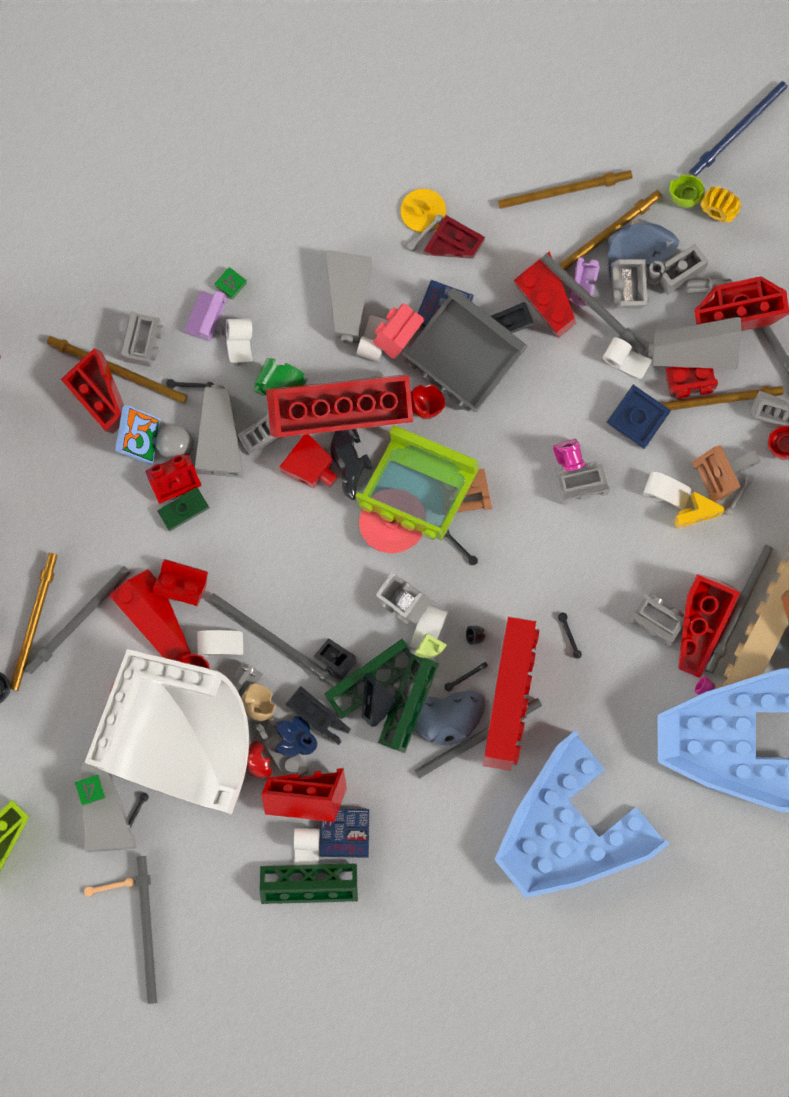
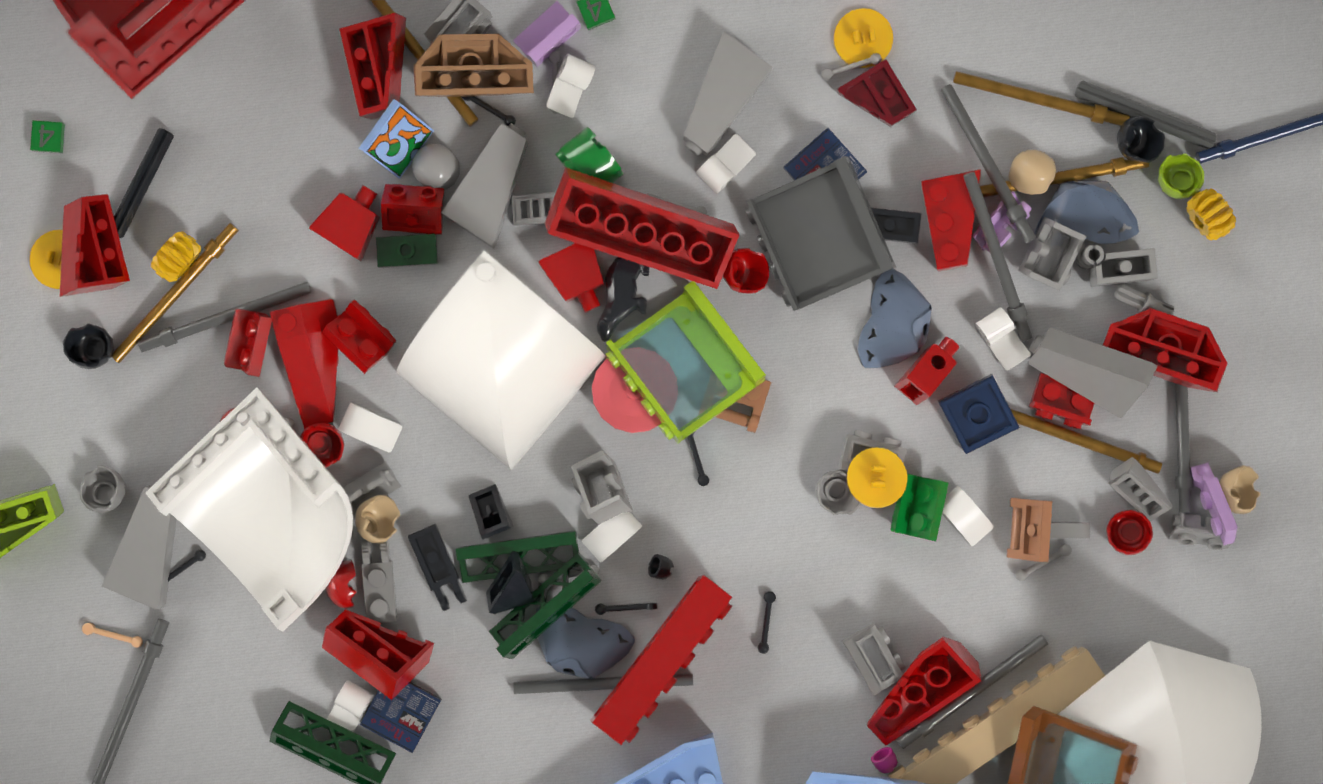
camera: 25 degrees right, 10 degrees up
(22, 593) = (175, 256): none -> yellow gear
(50, 783) = (102, 489): none -> light grey hair
(90, 790) = (139, 522): green tile -> none
(103, 626) = (247, 341): none -> red bracket
(132, 510) = (349, 222): none -> red torso
(167, 360) = (472, 67): none -> medium nougat wedge
(287, 545) = (498, 360): none -> white panel
(293, 735) = (396, 576): dark blue plate -> none
(323, 674) = (468, 523): dark grey bar -> none
(398, 330) = (757, 170): coral brick -> none
(430, 647) = (600, 557): yellowish green tile -> none
(548, 385) = (896, 322): none -> sand blue piece
(569, 455) = (875, 419): dark pink piece -> none
(571, 518) = (834, 493): none -> light grey hair
(585, 238) = (1032, 172): none -> tan hair
(587, 405) = (923, 377): none -> red torso
(589, 268) = (1015, 212): none -> dark grey bar
(592, 492) = (876, 477): none -> yellow piece
(632, 499) = (920, 508): none -> green bracket
(641, 164) = (1132, 108): none -> dark grey axle
(646, 180) = (1140, 139): none -> black hair
(704, 510) = (994, 559): yellow slope -> none

